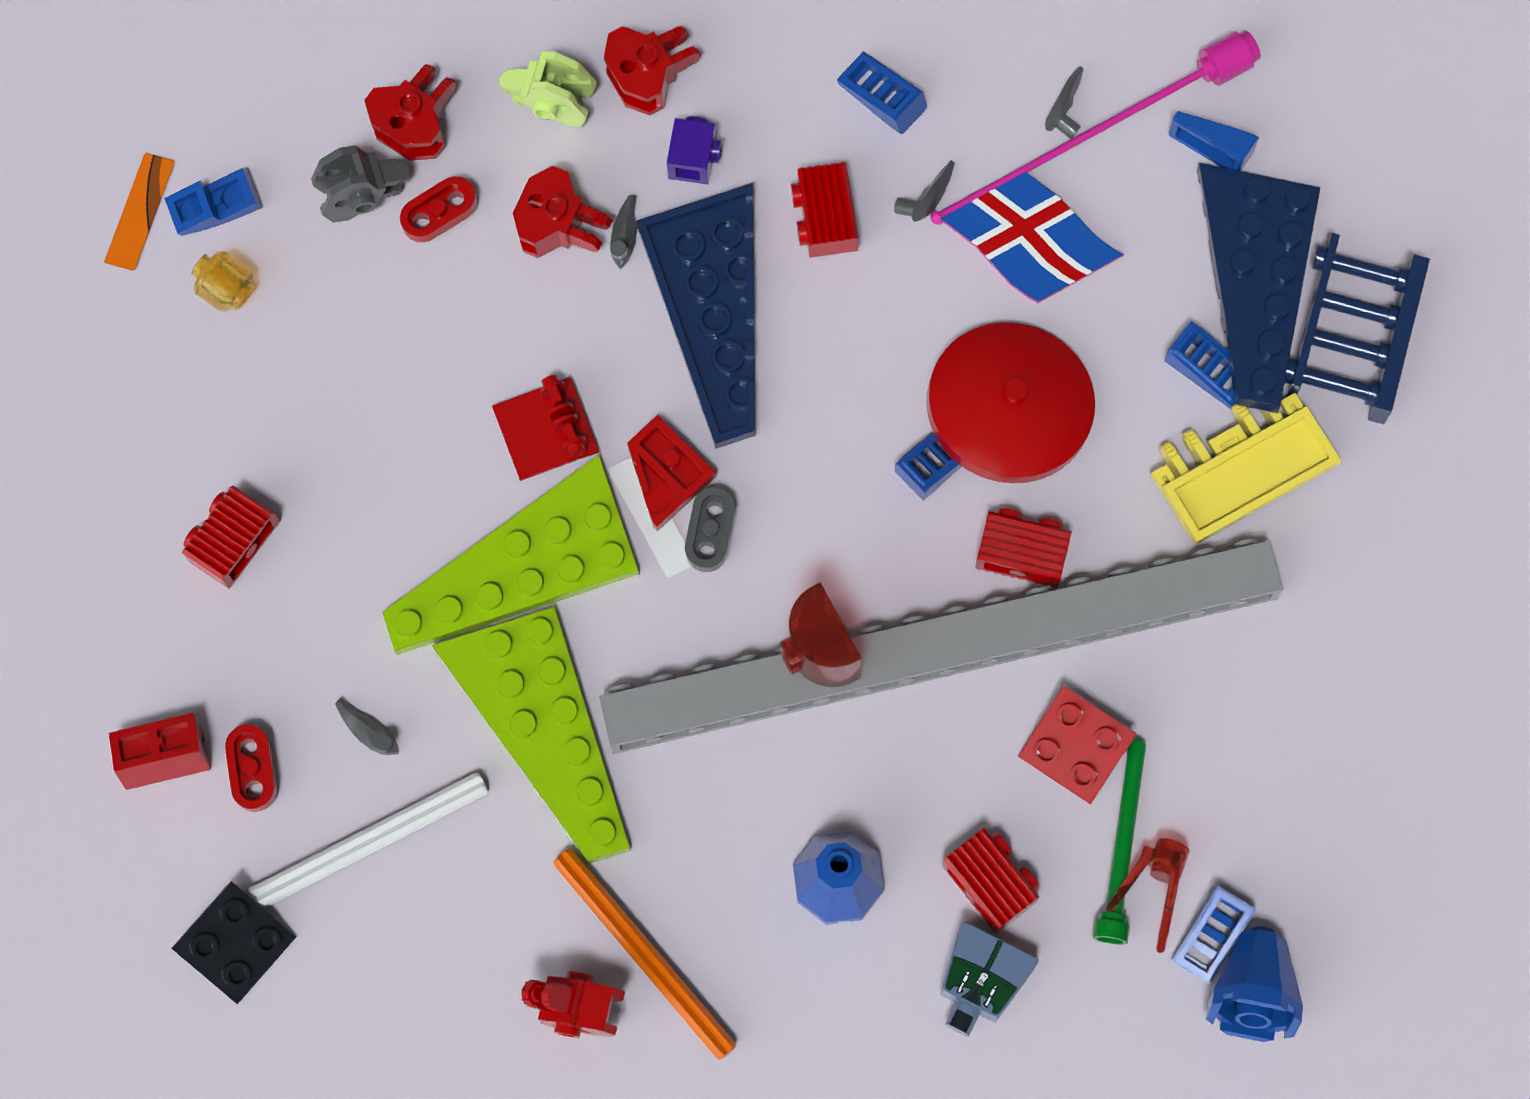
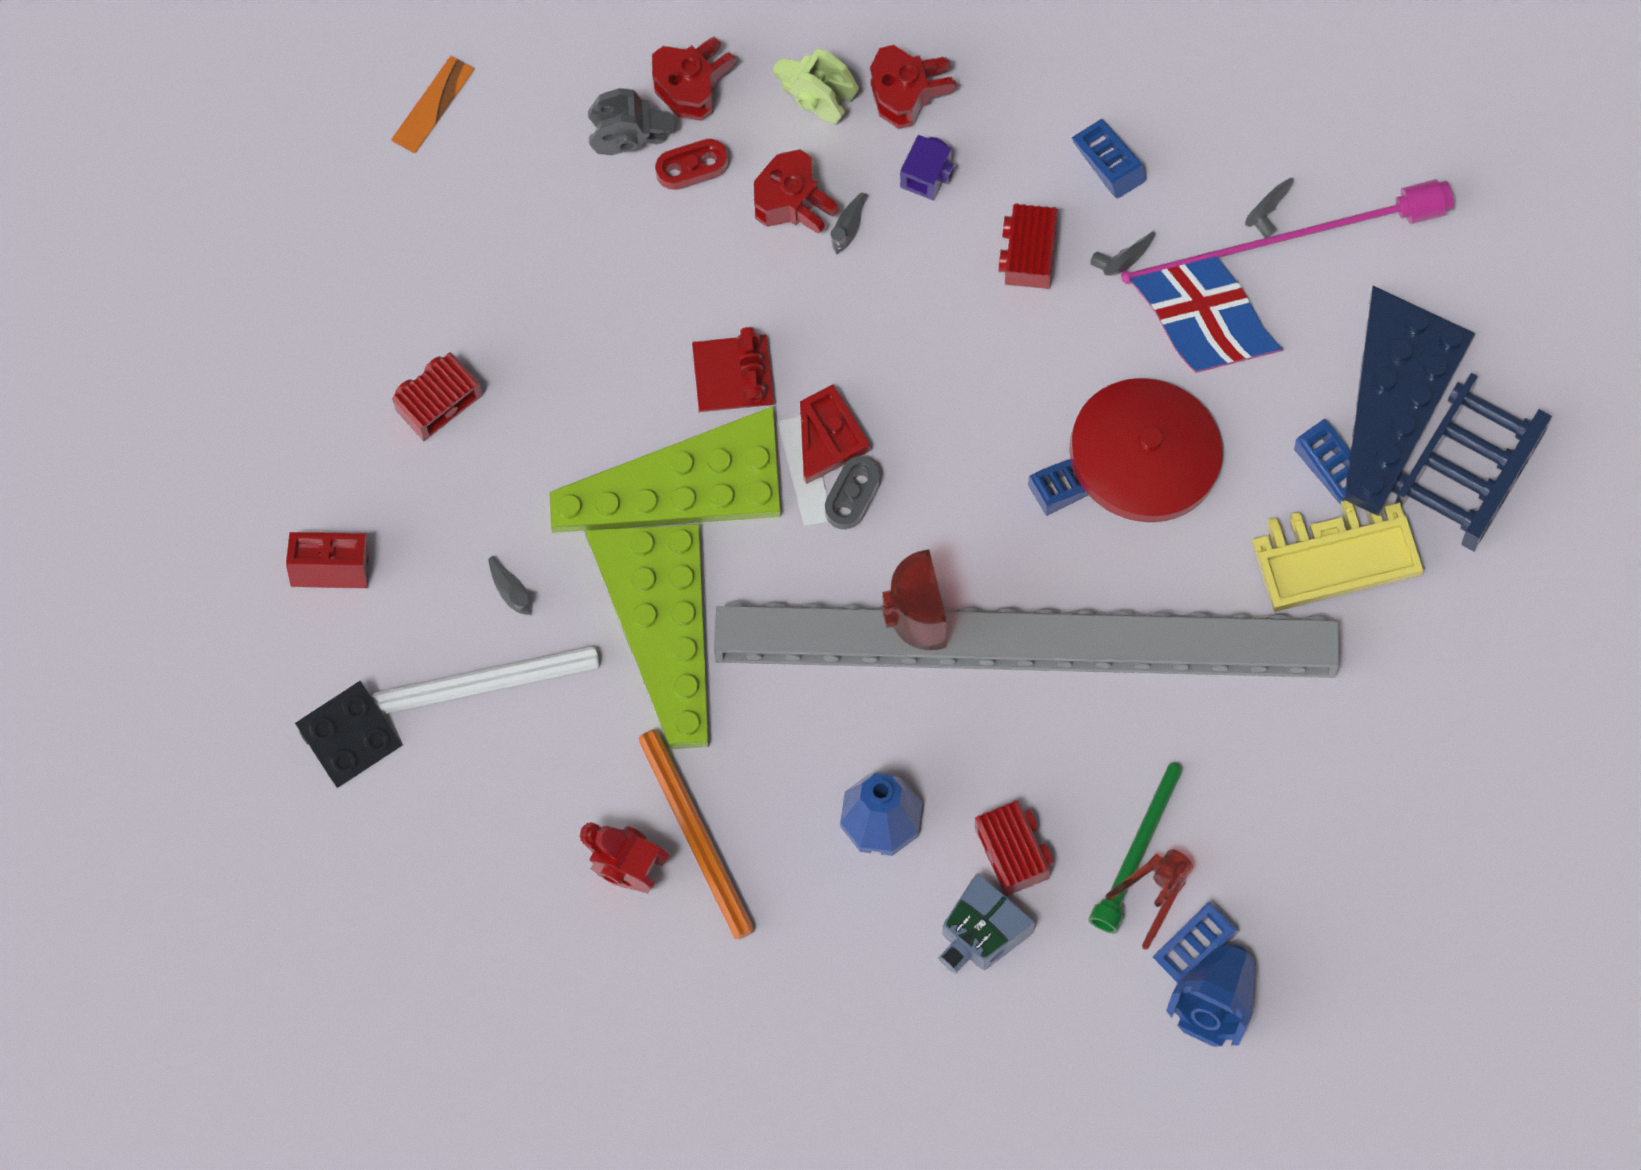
camera: 15 degrees right, 5 degrees down
(213, 204) = (494, 113): blue slope -> none
(223, 281) = (488, 179): clear yellow head -> none
(251, 769) = (400, 595): red plate -> none
(707, 285) = (907, 283): dark blue wing -> none
(1023, 547) = (1121, 575): red brick -> none
(1077, 744) = (1121, 753): red hinge -> none
(1214, 141) = (1392, 270): blue slope -> none

